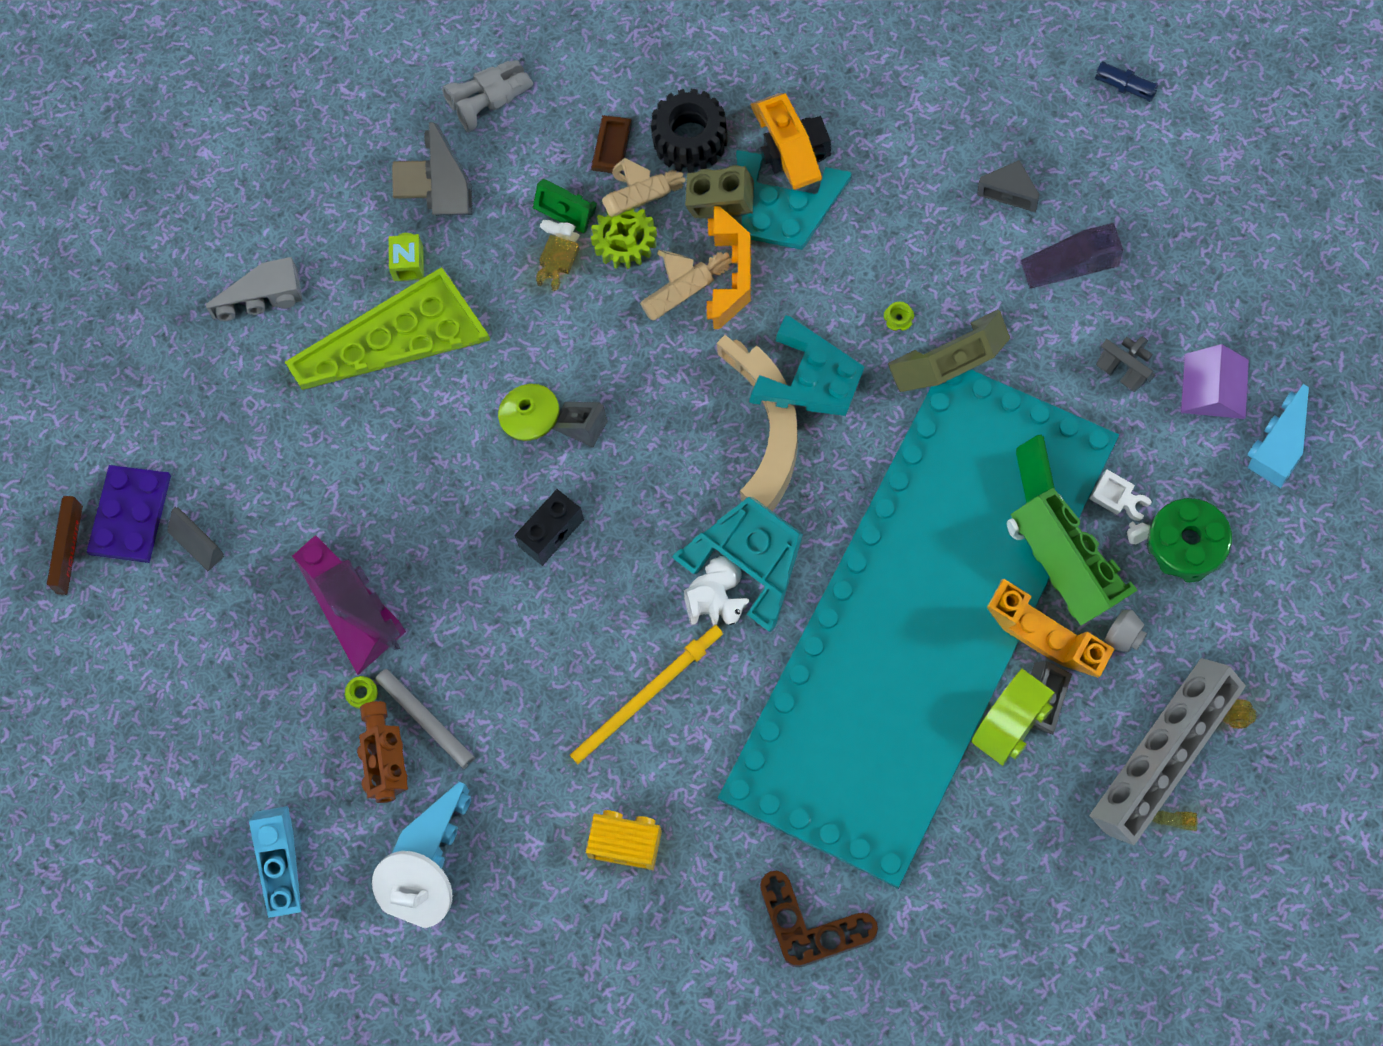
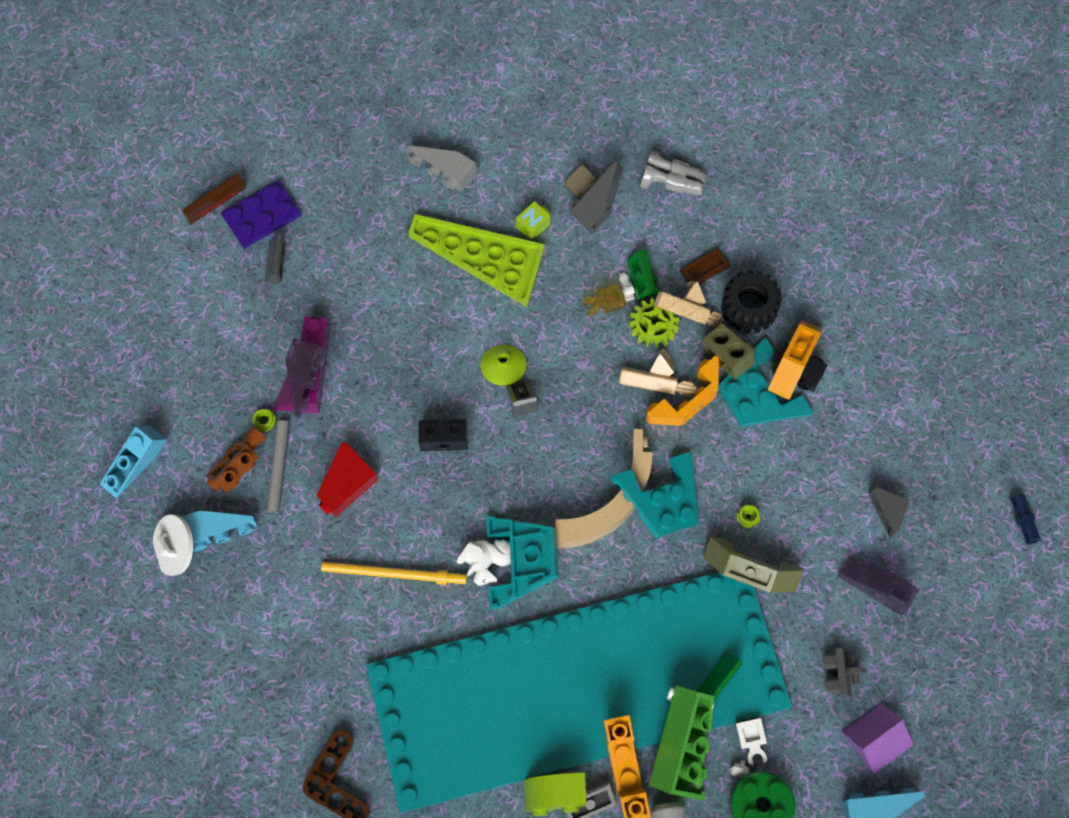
camera: 40 degrees right, 0 degrees up
(507, 661) = (344, 481): none -> red slope
(624, 840) = (296, 634): yellow brick -> none

